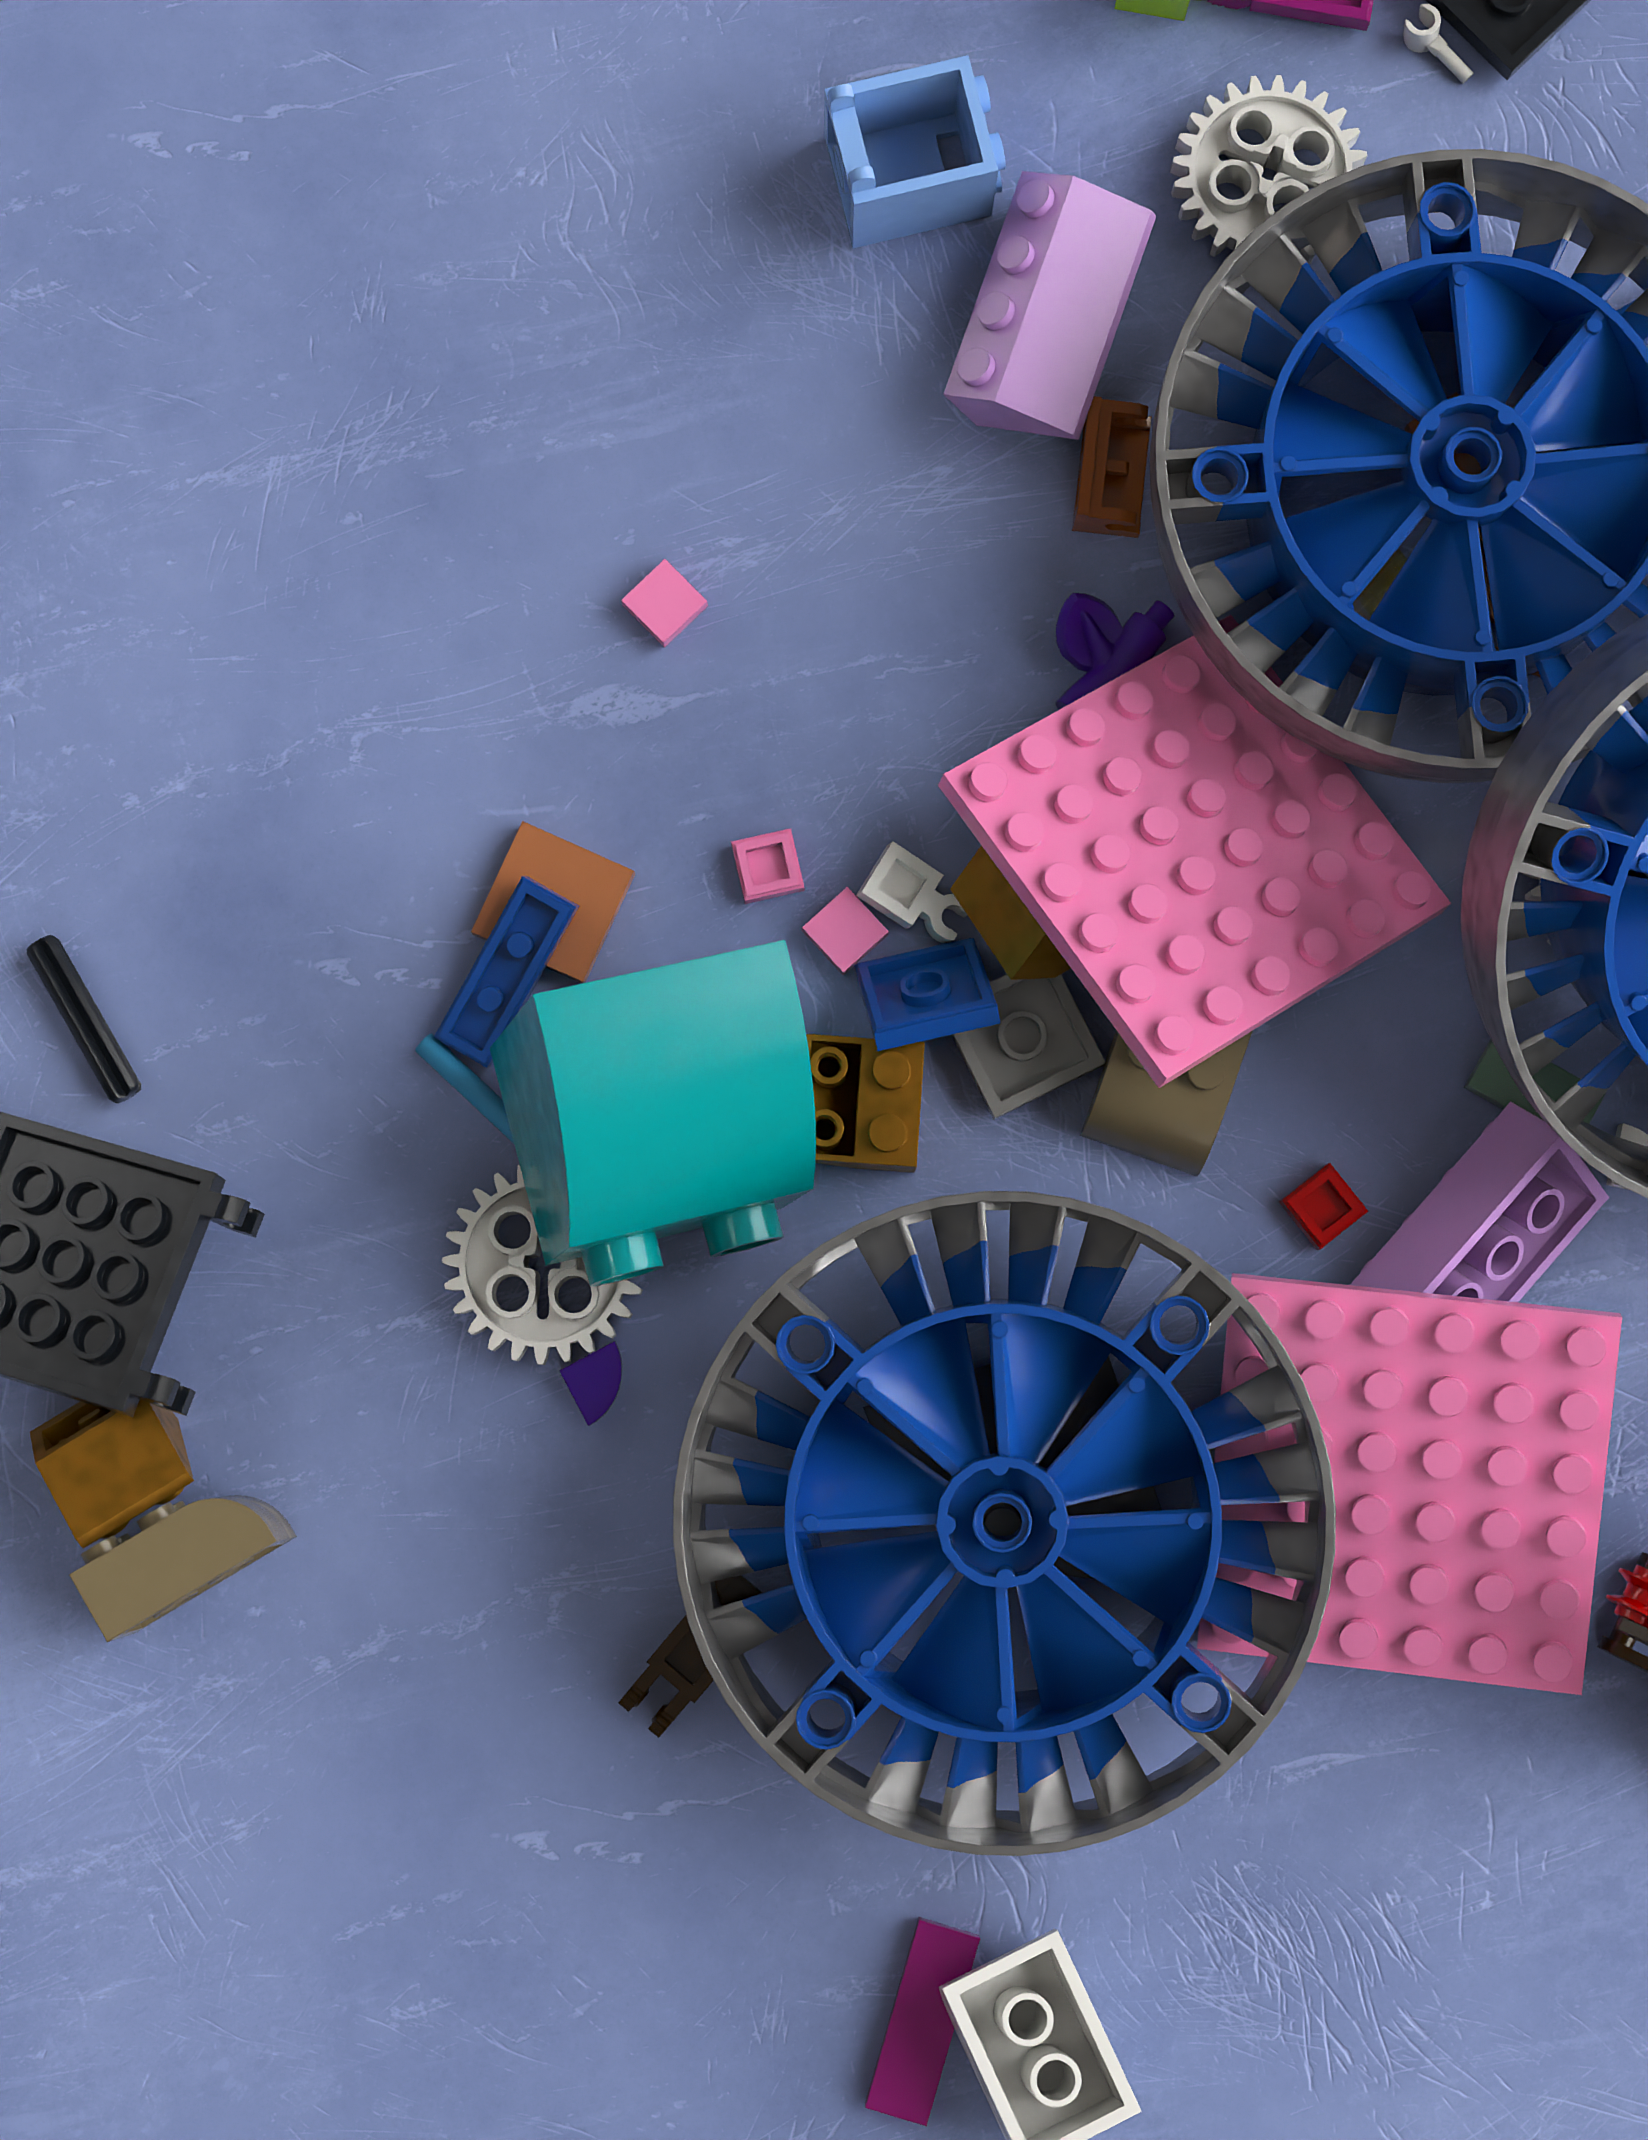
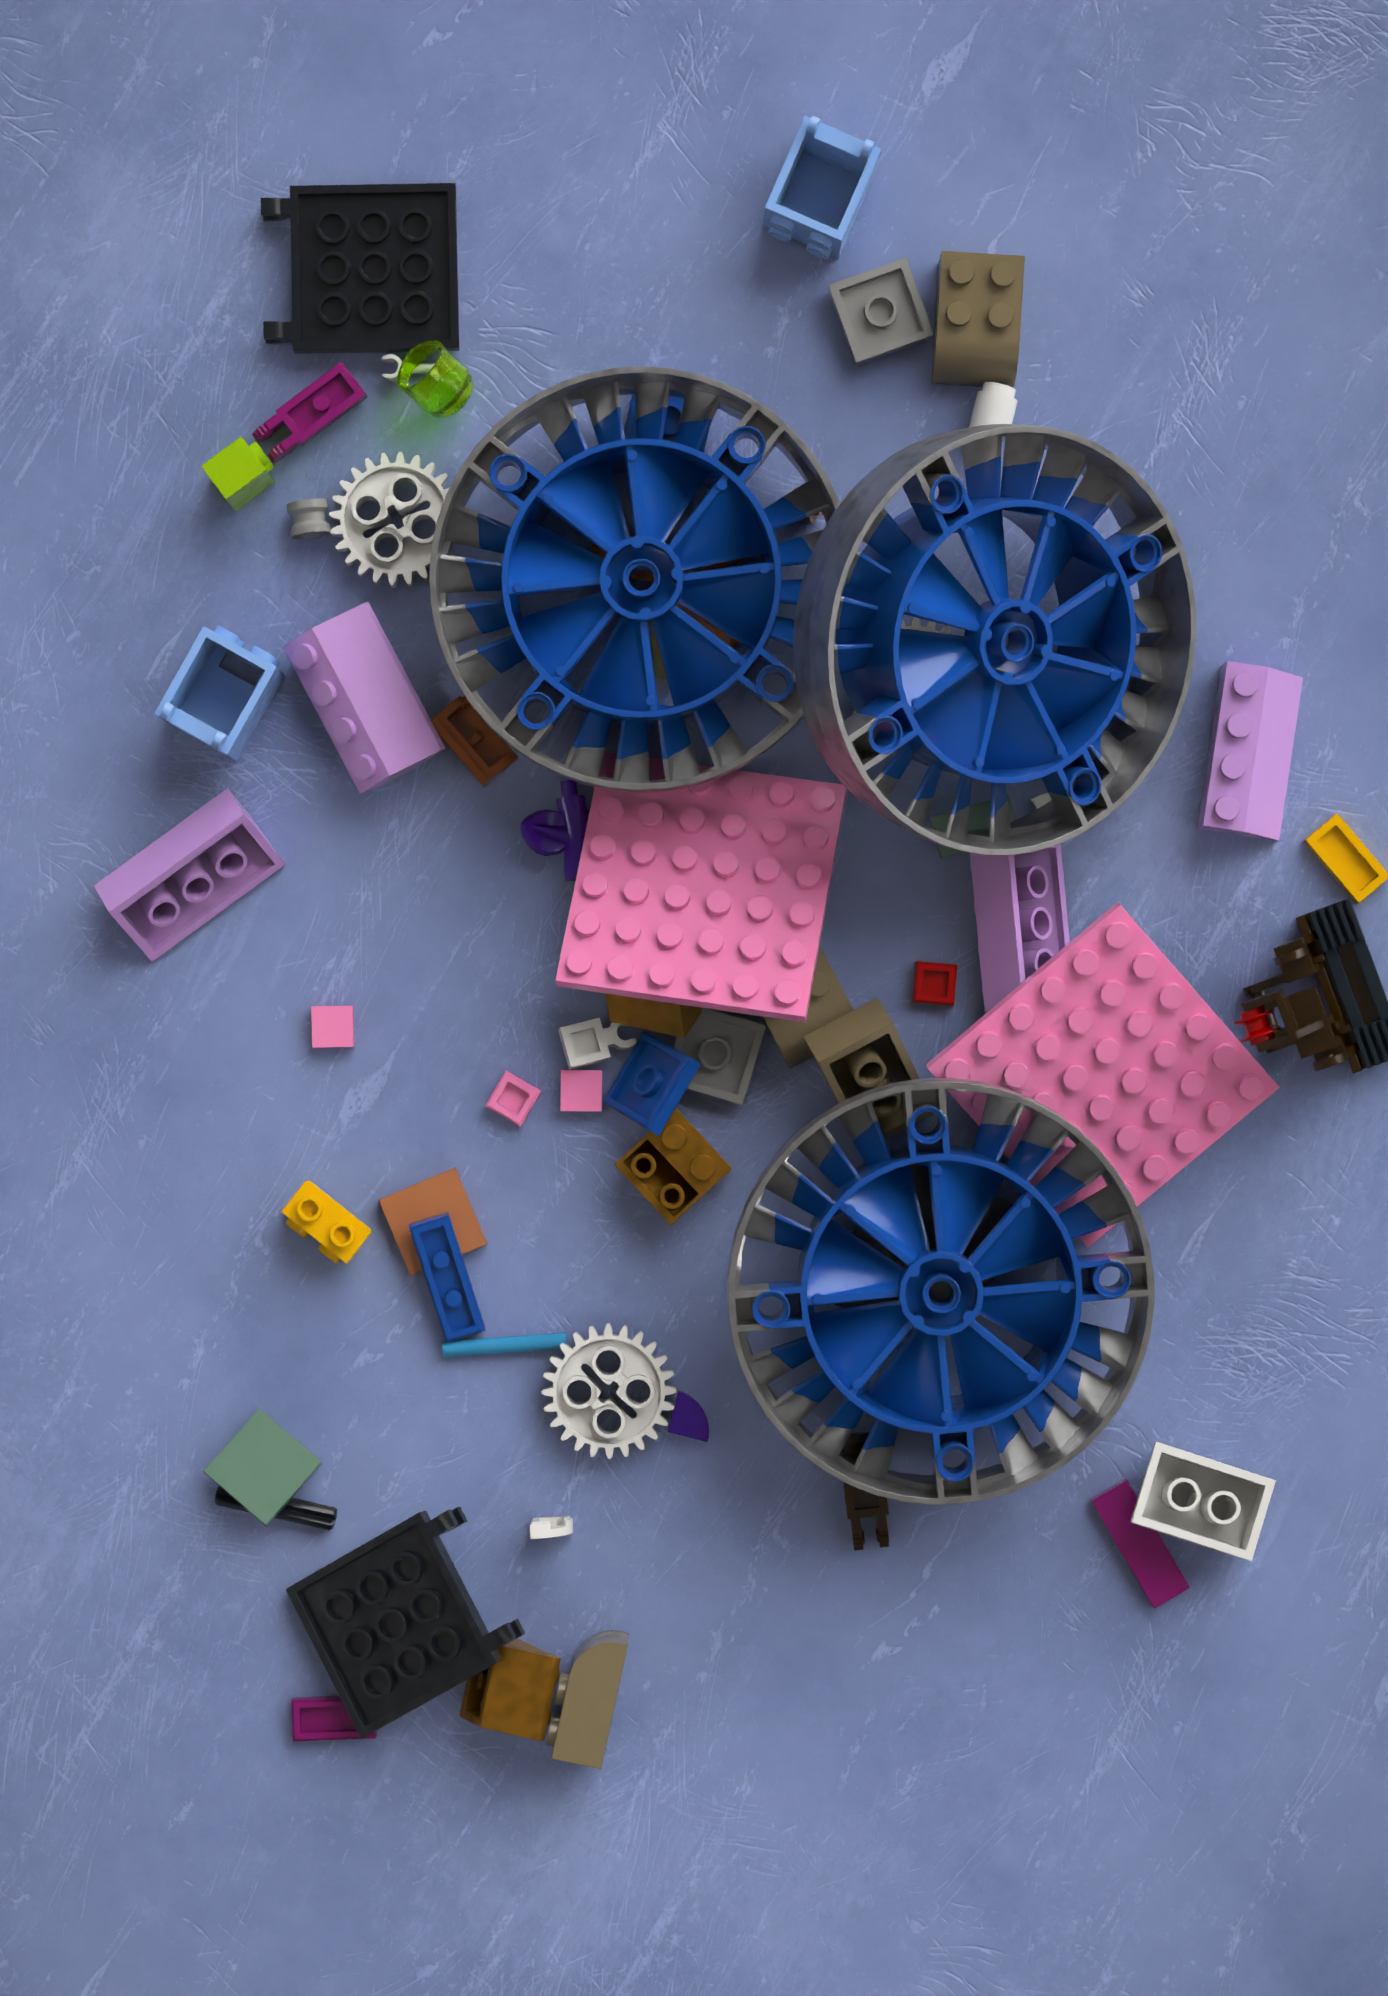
camera: 50 degrees left, 5 degrees up
(112, 963) = (262, 1467): none -> sand green tile
(334, 1339) = (550, 1527): none -> white tile
(446, 784) = (327, 1221): none -> yellow bracket
(661, 1109) = (594, 1272): teal brick -> none
(684, 302) = (189, 875): none -> lavender slope
(1182, 82) = (309, 518): none -> light grey wheel
(1183, 1188) = (864, 1054): none -> dark tan brick
(1456, 85) = (445, 386): none -> clear neon green helmet

